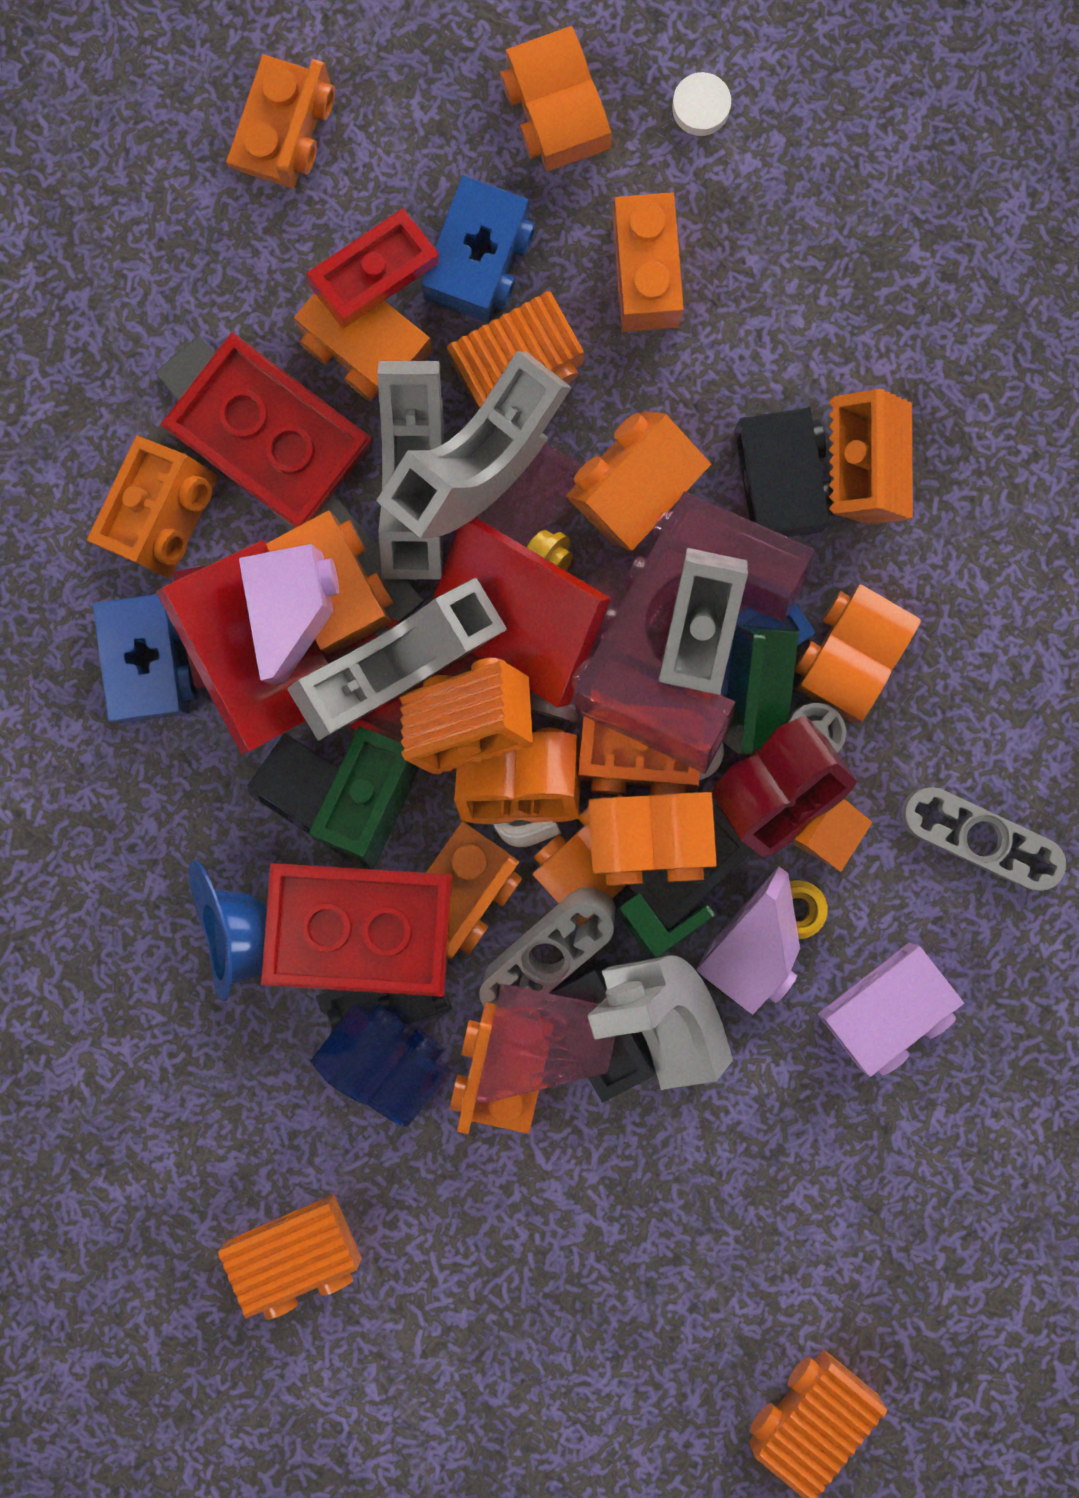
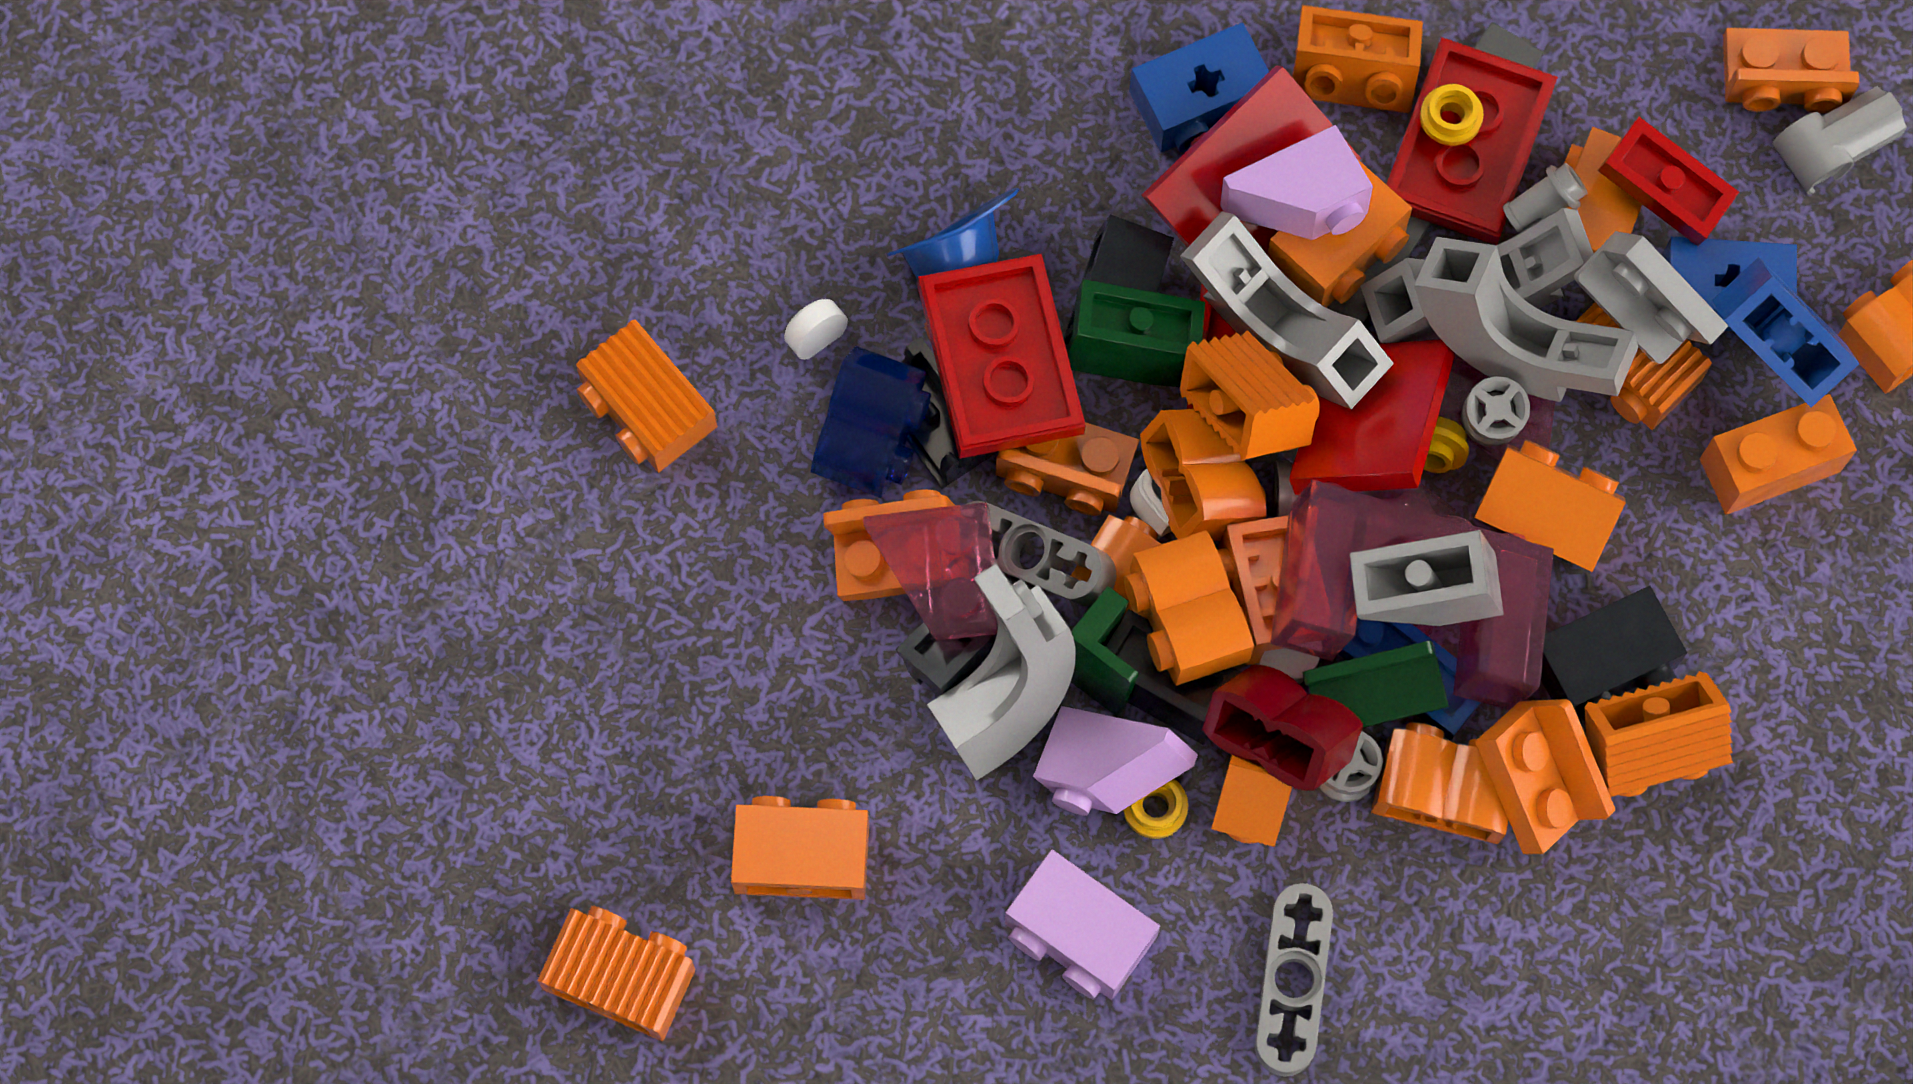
camera: 70 degrees right, 15 degrees down
(231, 429) = (1456, 99): none -> yellow plate
(270, 1082) = (815, 328): none -> white tile
(354, 384) = (1554, 192): none -> light grey pin
(366, 111) = (1832, 143): none -> light grey piece
(486, 328) = (1647, 296): none -> light grey bracket
(549, 492) = (1502, 401): none -> light grey wheel
(552, 215) = (1785, 332): none -> blue brick
(753, 1235) = (800, 849): none -> orange brick
(878, 570) = (1544, 772): none -> orange bracket

